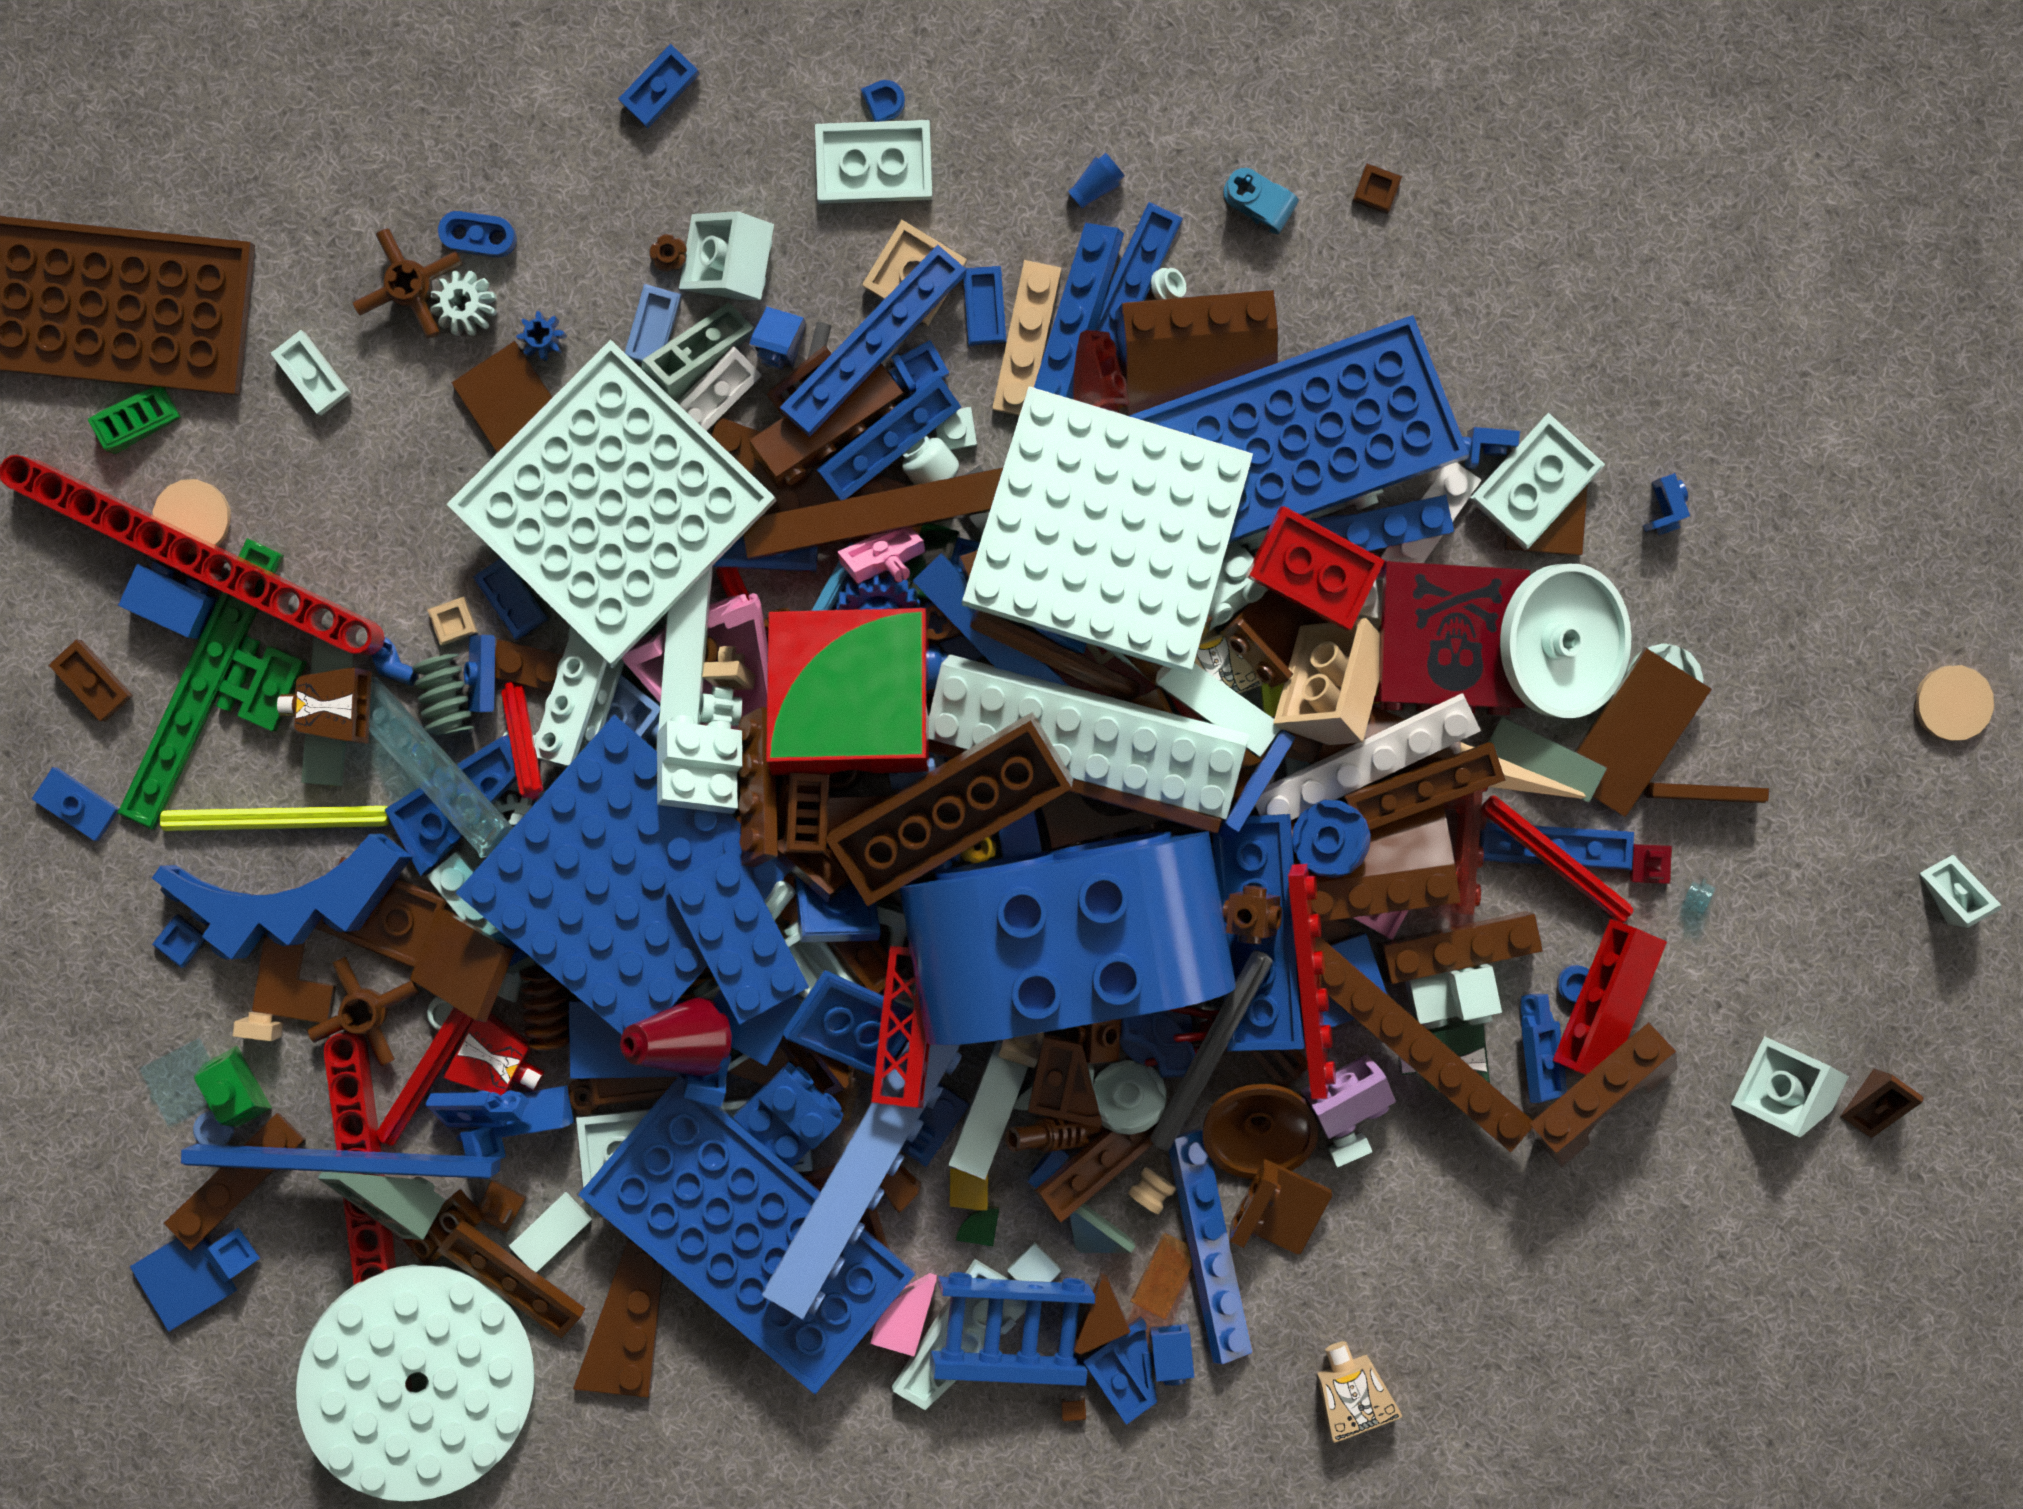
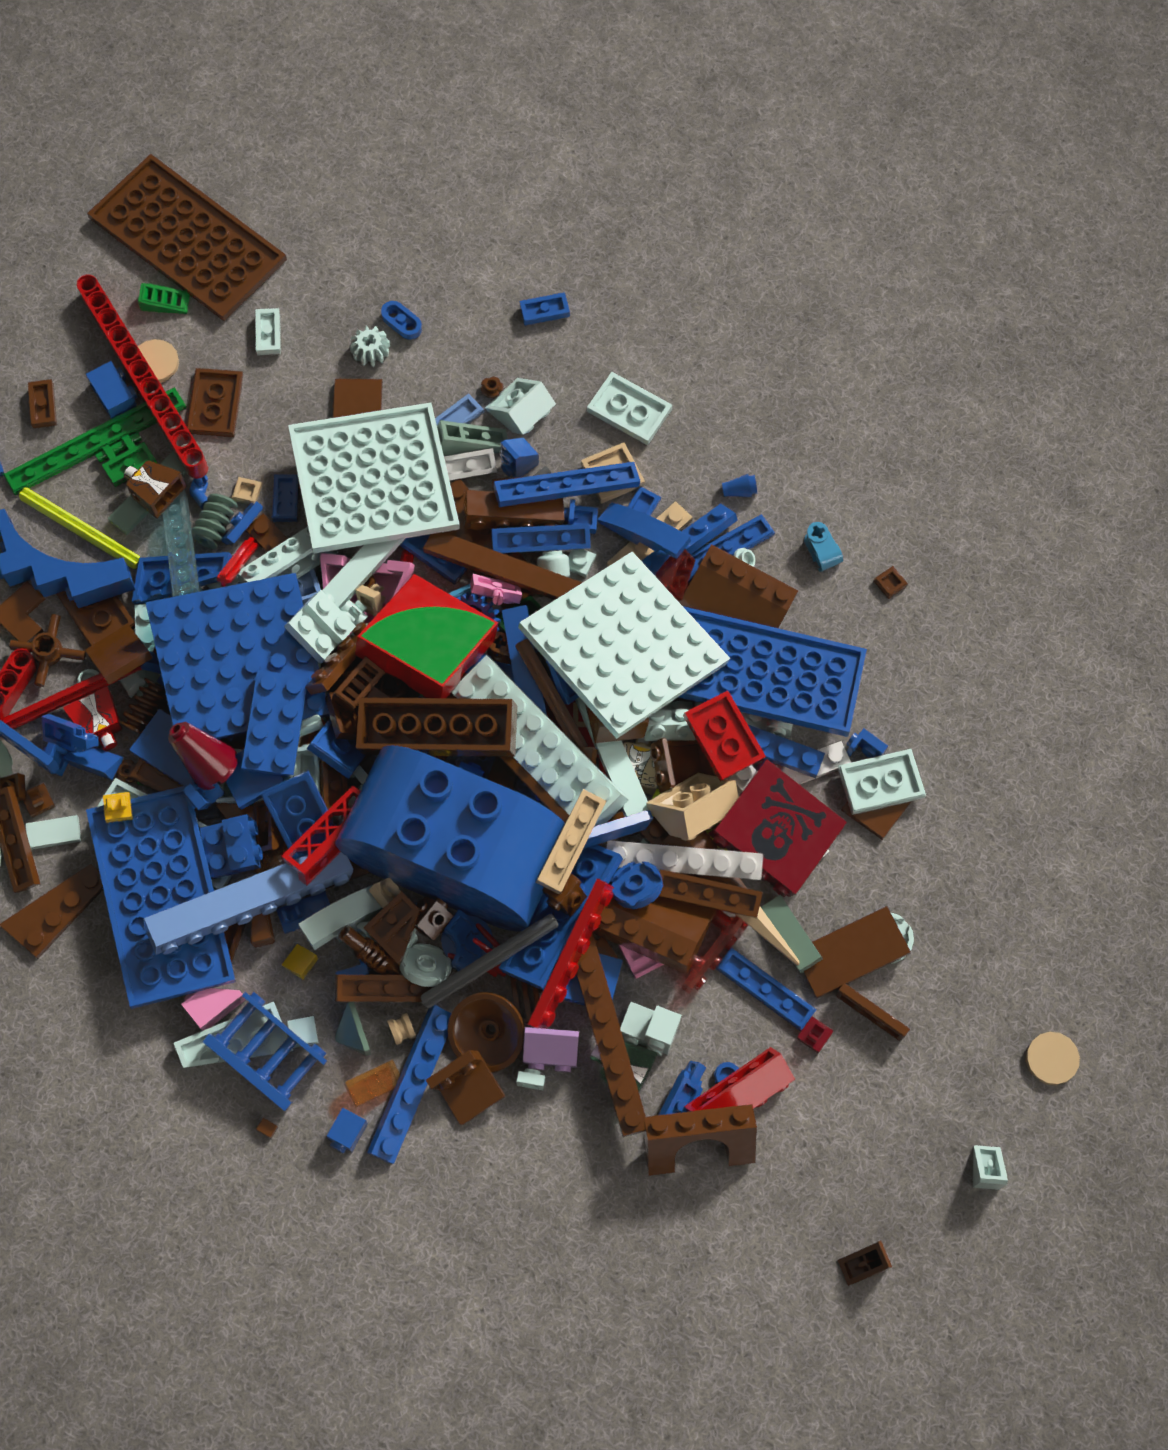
camera: 30 degrees right, 20 degrees down
(316, 522) = (215, 402): none -> reddish brown tile
(404, 269) = (353, 314): reddish brown bar -> none
(550, 342) = (397, 384): blue gear -> none
(616, 1167) = (117, 807): none -> yellow tile
(884, 100) = (656, 384): blue tile -> none
(979, 1227) = (290, 986): dark green tile -> none
(1016, 336) = (644, 529): none -> blue slope
(1101, 1320) = (321, 1082): reddish brown slope -> none
(1124, 1372) = (311, 1124): blue wing -> none
(1228, 854) = (571, 841): none -> tan plate
(1353, 1394) = (435, 1227): torso -> none
(1460, 947) = (696, 1013): reddish brown brick -> none
(1557, 859) = (760, 991): red axle -> none
(1565, 640) = (842, 871): light aqua dish -> none
(1672, 500) = (954, 839): blue bracket -> none
(1699, 896) = (832, 1071): clear light blue plate -> none
(1788, 1088) = (817, 1216): light aqua slope -> none

